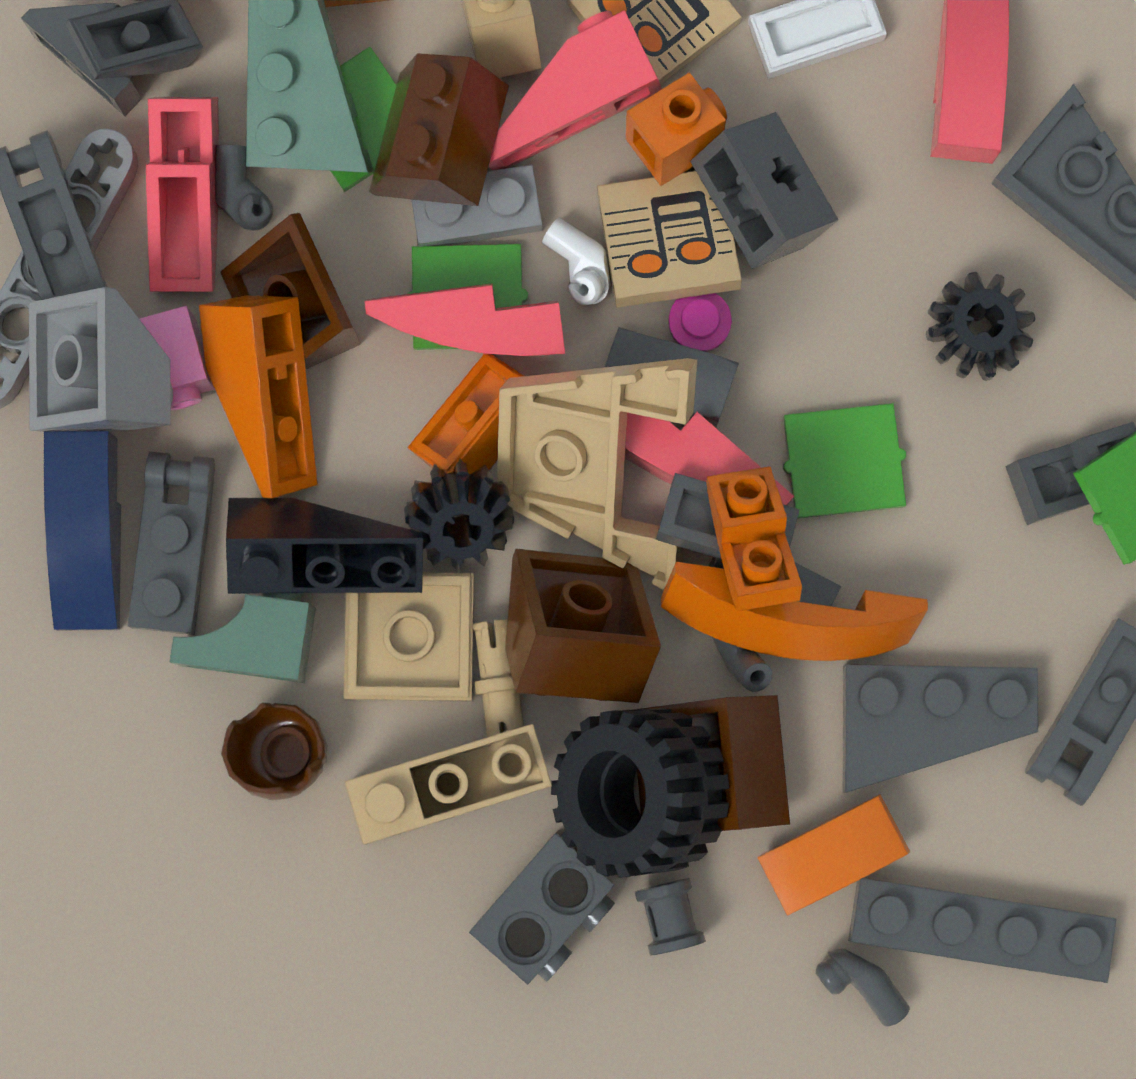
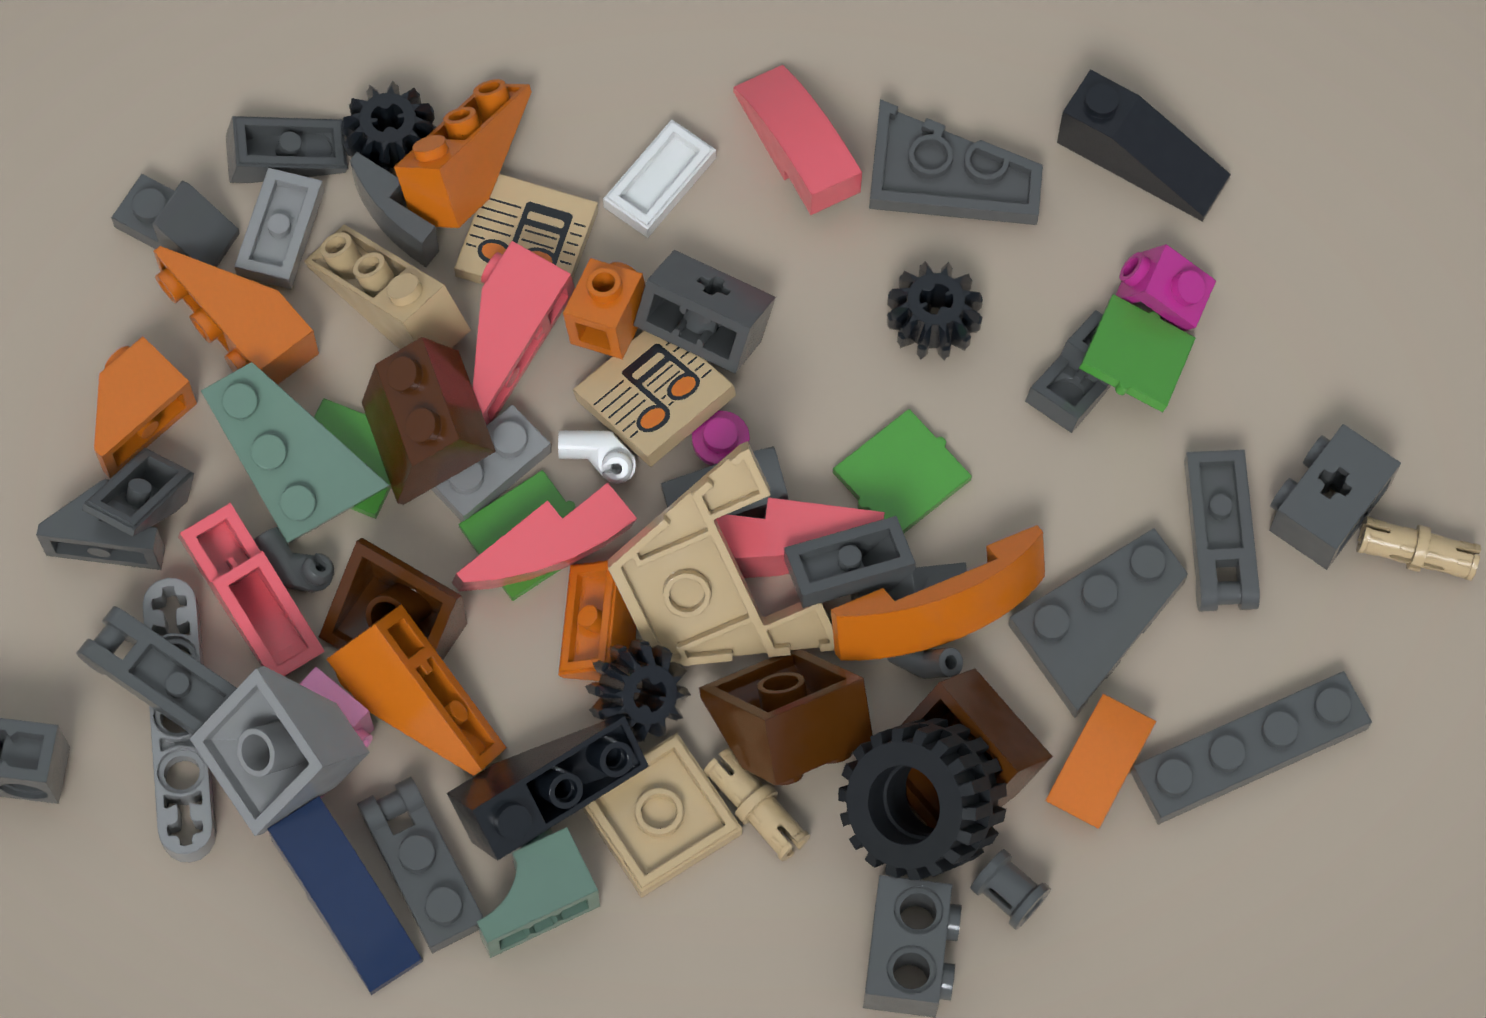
camera: 35 degrees left, 15 degrees down
(275, 751) = (616, 962): reddish brown hair -> none
(447, 784) = (767, 900): tan slope -> none
(753, 538) = (875, 554): orange slope -> none
(869, 979) = (1188, 837): dark grey arm -> none

